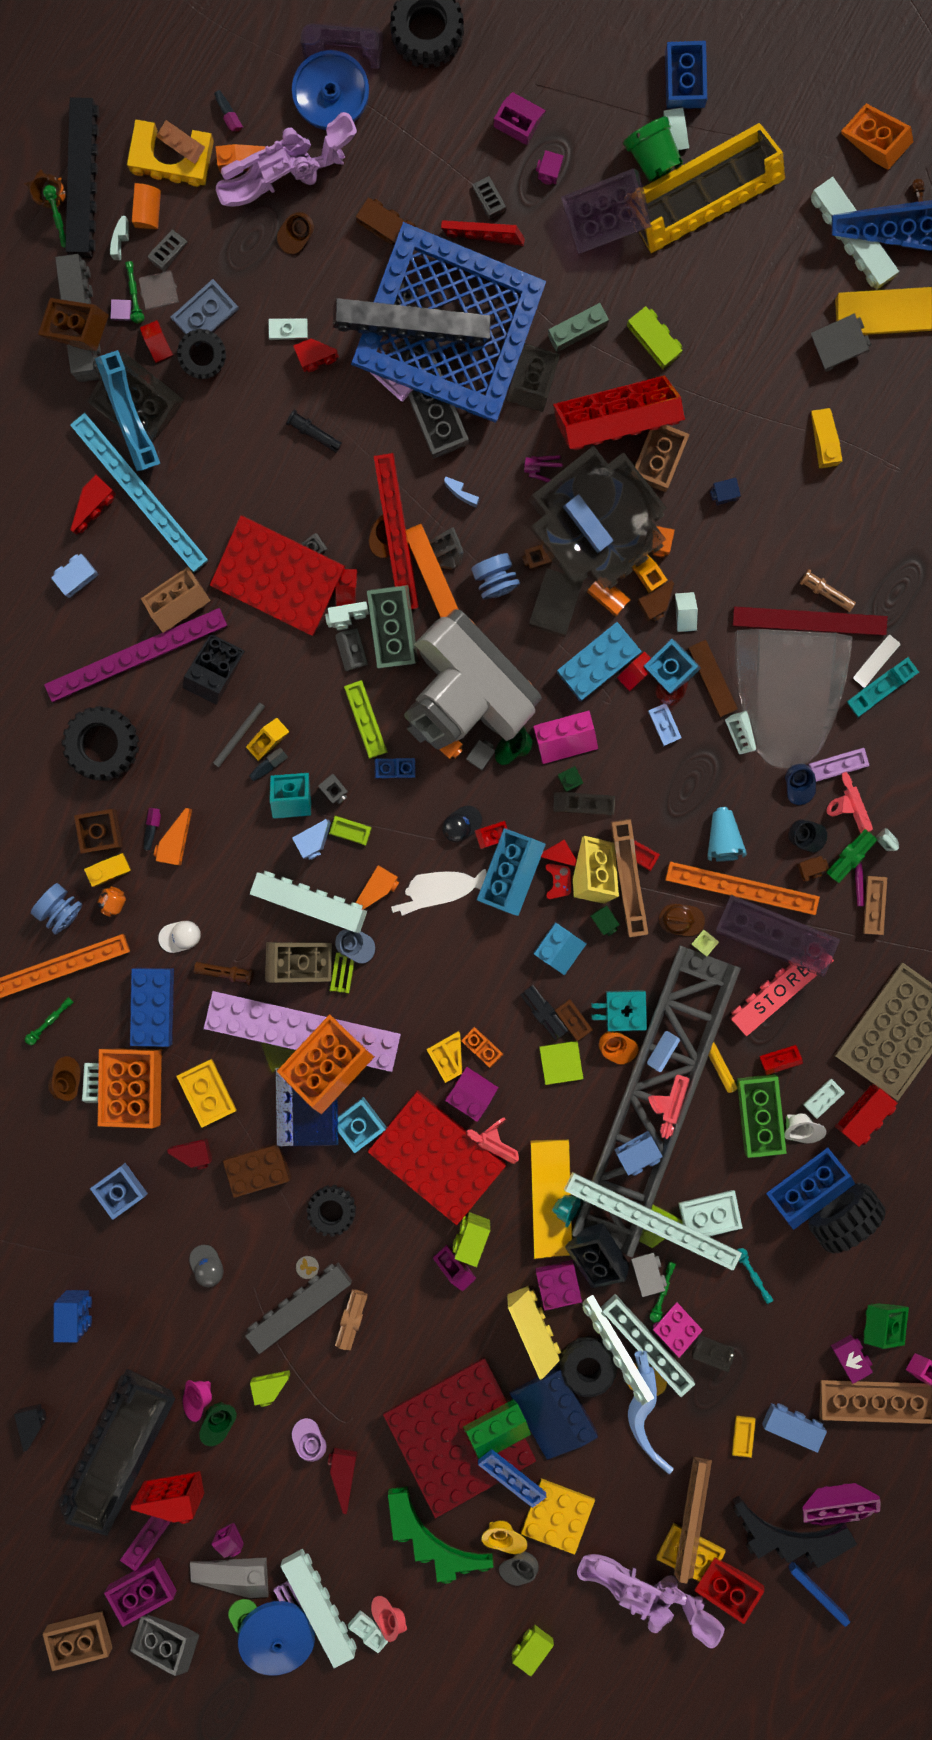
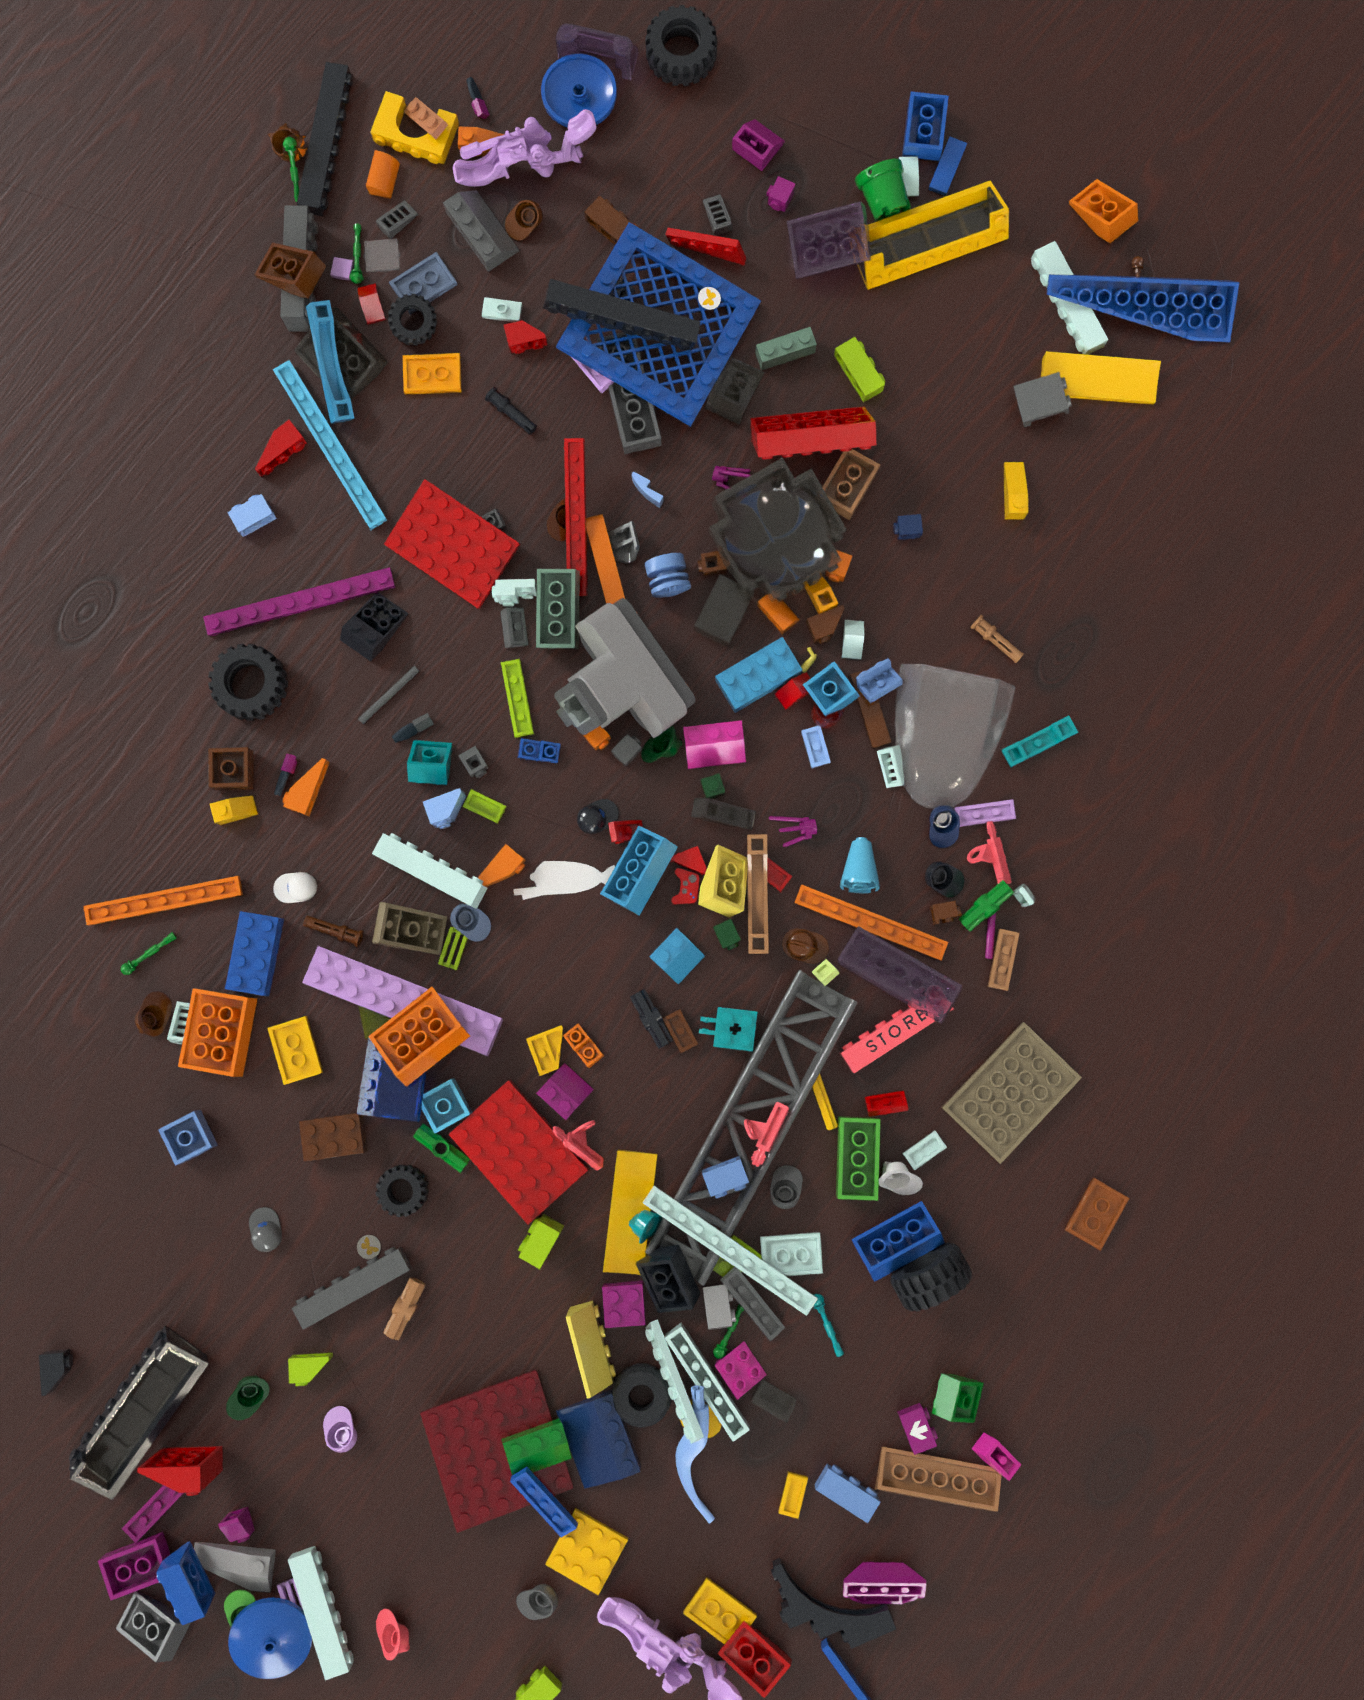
camera: 15 degrees right, 5 degrees down
(60, 912) = (175, 839): medium blue wheel -> none
(72, 1315) = (115, 1259): blue brick -> none
(77, 1641) = (61, 1609): medium nougat brick -> none
(111, 901) = (232, 841): orange head -> none
(120, 234) = (353, 197): light aqua slope -> none
(175, 599) = (347, 553): medium nougat slope -> none
(190, 1602) = (186, 1584): none -> blue slope
(193, 1153) = (271, 1110): dark red slope -> none
(196, 1398) = (231, 1366): dark pink piece -> none
(228, 404) = (432, 373): none -> light orange tile
(253, 248) = (480, 228): none -> dark grey slope
(267, 739) = (416, 702): yellow slope -> none
(342, 1471) = (368, 1470): dark red slope -> none
(346, 588) = (519, 564): red slope -> none
(368, 1631) = (369, 1645): light aqua slope -> none
(374, 1170) = (452, 1156): none -> green piece
(426, 1546) = (444, 1563): green arch -> none
(455, 1270) = (519, 1271): magenta slope -> none
(494, 287) = (709, 298): none -> white sticker
(503, 1538) = (526, 1566): yellow piece -> none
(561, 1062) = (661, 1073): lime tile -> none
(588, 523) = (767, 537): medium blue tile -> none
(618, 1047) = (721, 1065): orange cap -> none
(645, 642) = (807, 664): none -> light yellow piece
(663, 1051) = (766, 1075): light blue slope -> none
(667, 805) = (807, 827): none -> magenta plant
(680, 1267) = (752, 1303): none -> dark grey plate
(692, 1519) = (727, 1576): medium nougat arch -> none
(696, 1152) = (786, 1187): none -> dark grey cap
(714, 112) = (947, 166): none -> blue tile
(717, 651) = (878, 680): none -> medium blue bracket
(809, 621) = (1007, 672): dark red tile -> none
(866, 1115) = (966, 1173): red brick -> none
(876, 660) = (1037, 715): white sticker -> none

